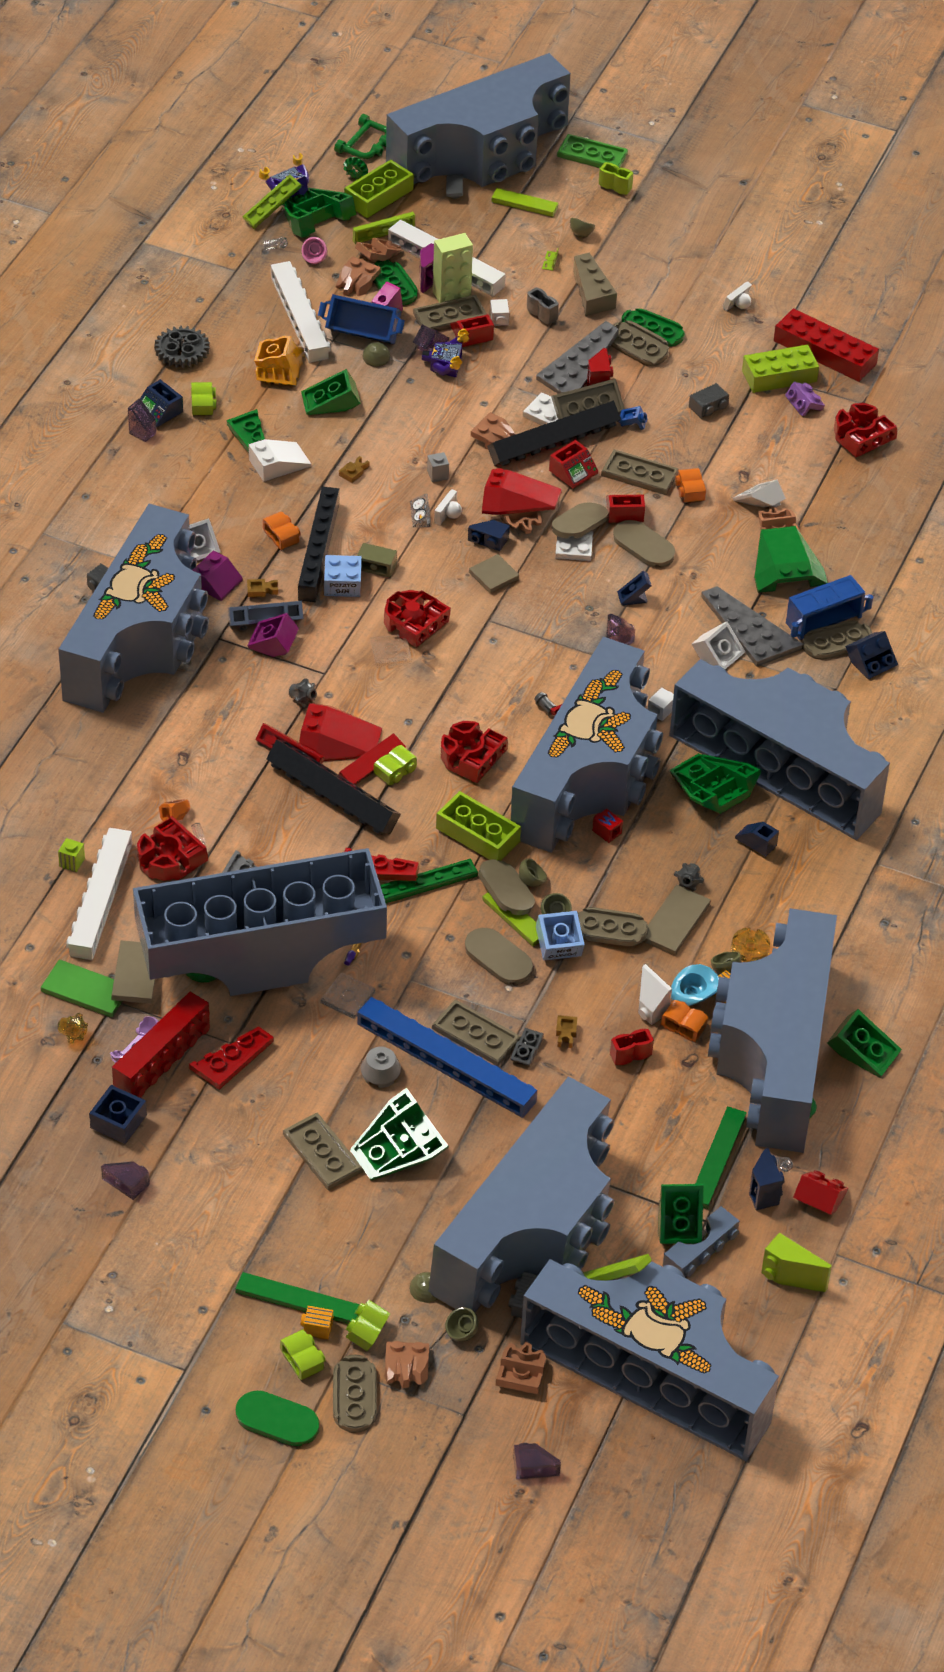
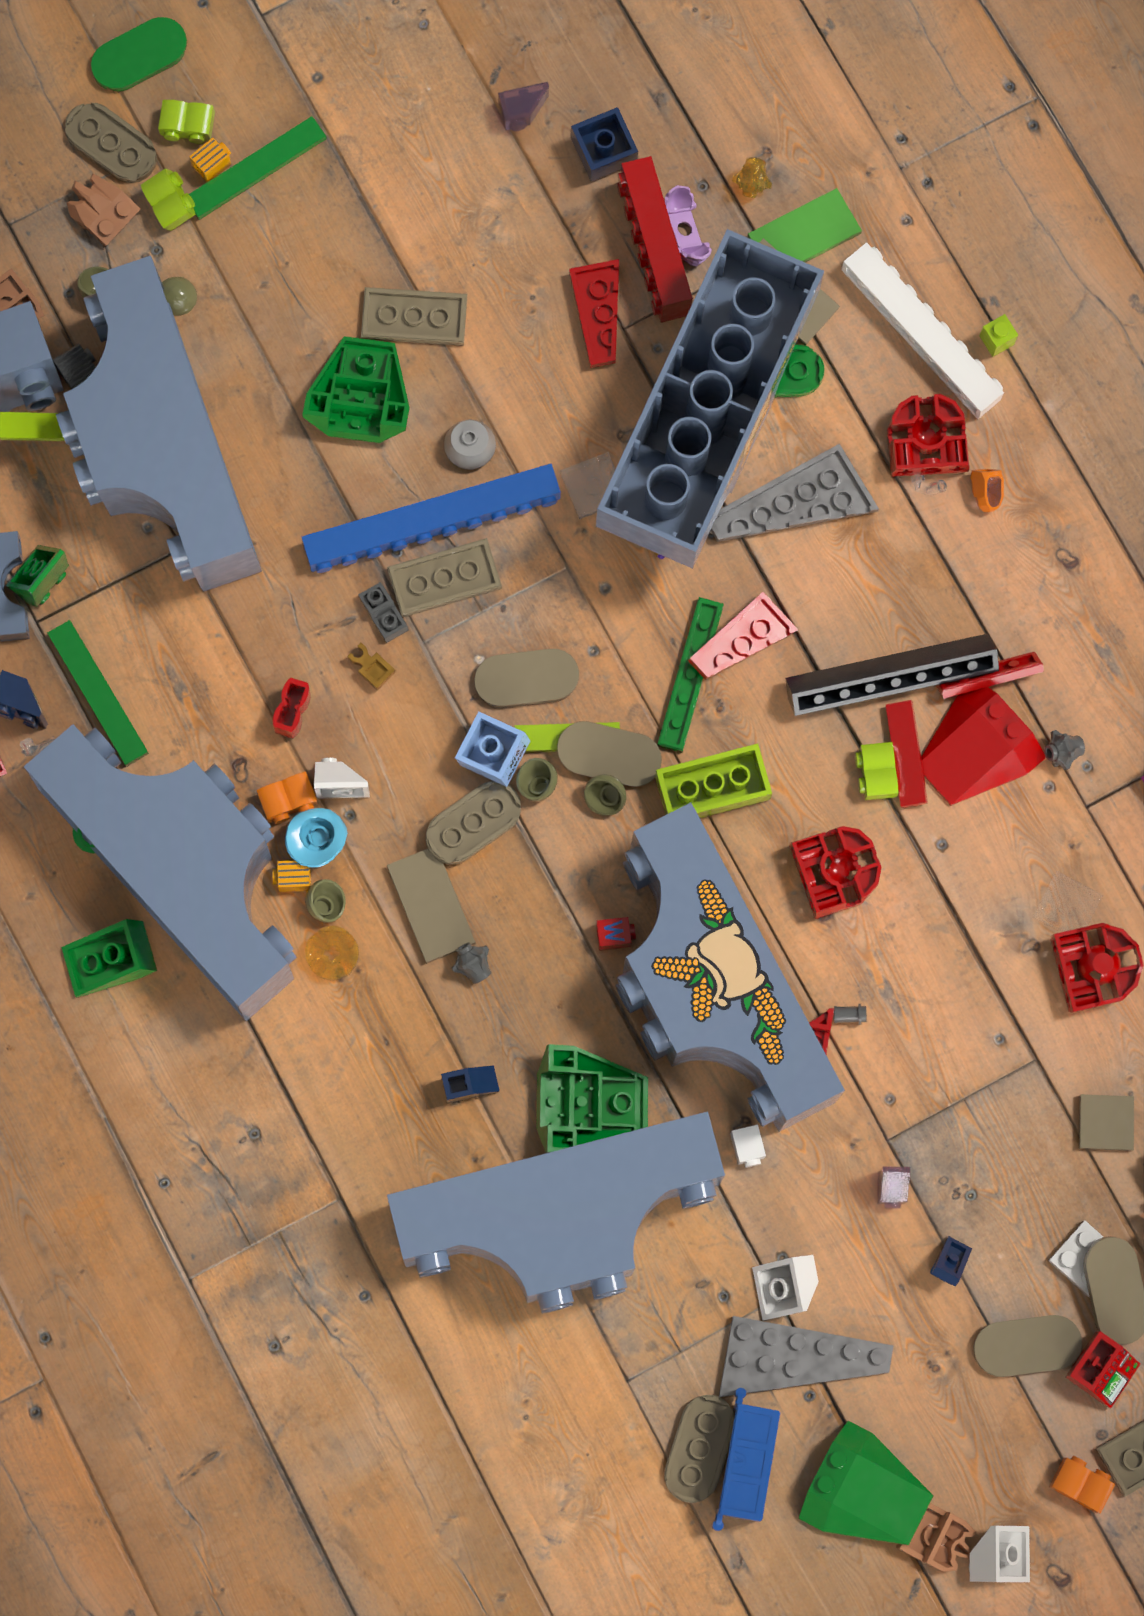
camera: 125 degrees right, 30 degrees up
(872, 654) = (640, 1462): dark blue slope -> none

